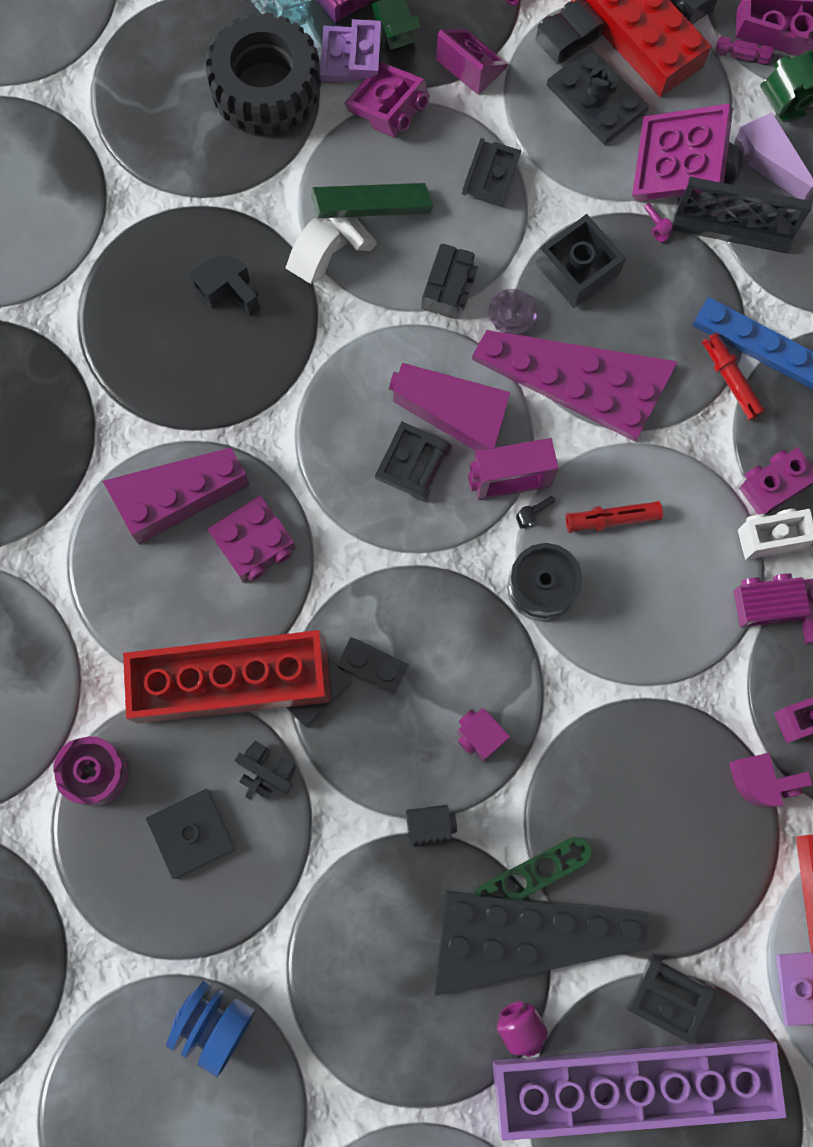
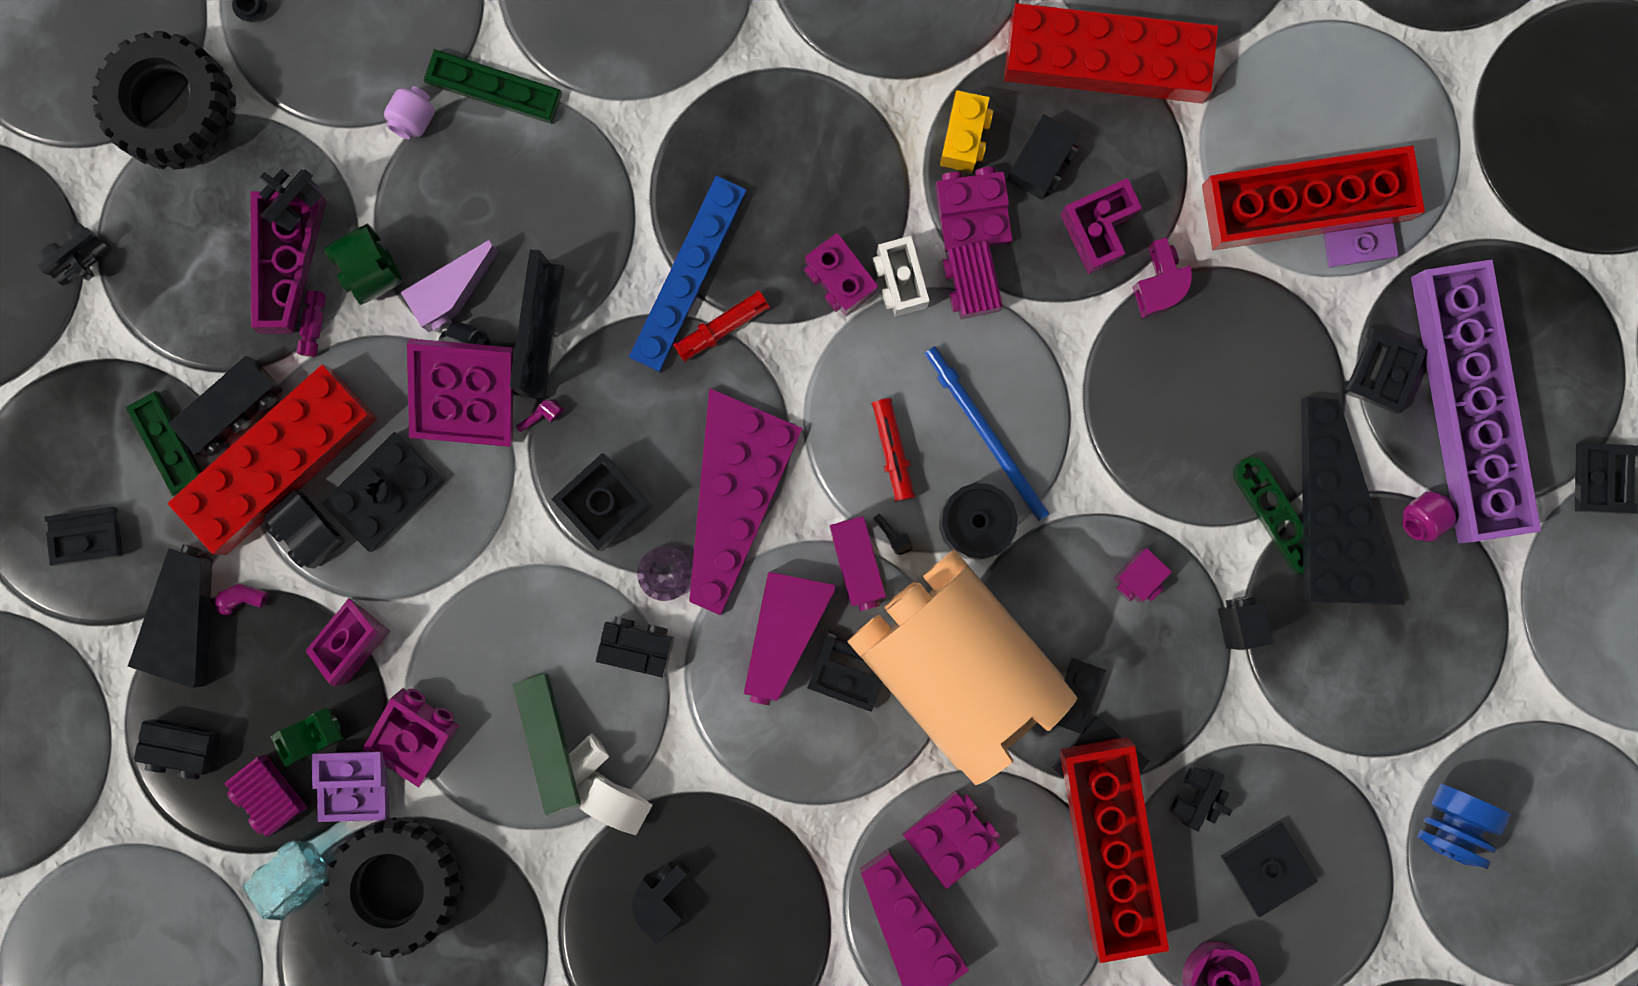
camera: 90 degrees left, 10 degrees up
(413, 543) = (963, 668): none -> light nougat brick
(491, 172) = (494, 608): black plate -> none
(677, 574) = (948, 379): none -> blue bar

